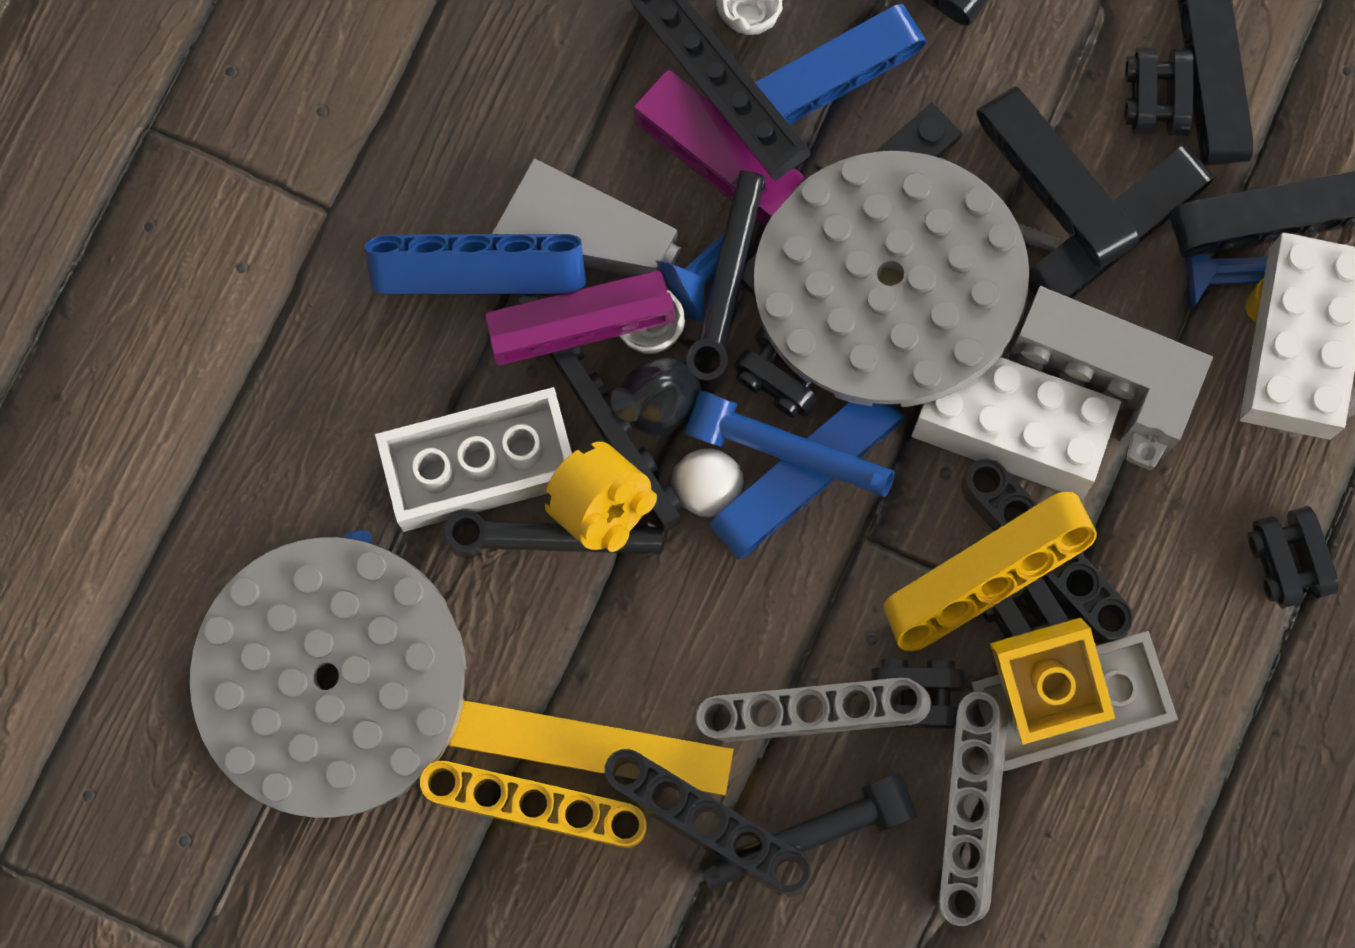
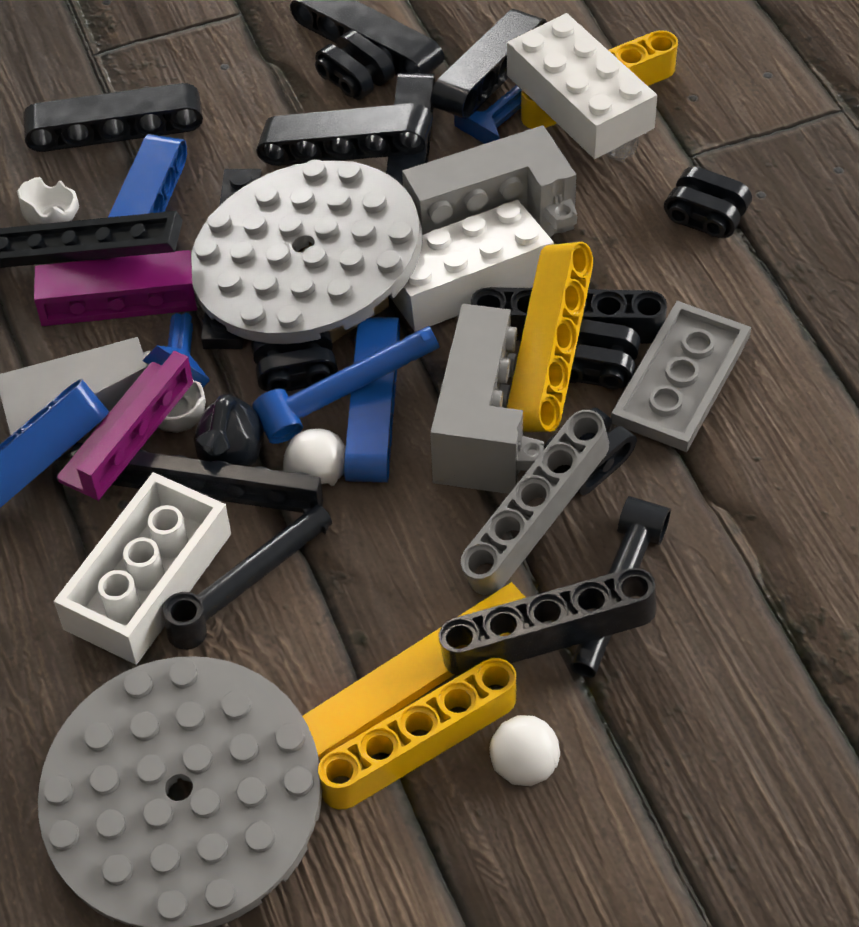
camera: 45 degrees left, 25 degrees down
(595, 893) = (524, 750): none -> white hair
(599, 497) = (255, 503): yellow brick -> none
(728, 272) = (199, 333): black piece -> none
(854, 573) = (473, 431): none -> light grey hinge
(959, 826) = (703, 486): light grey beam -> none
(1052, 680) = (658, 351): yellow brick -> none

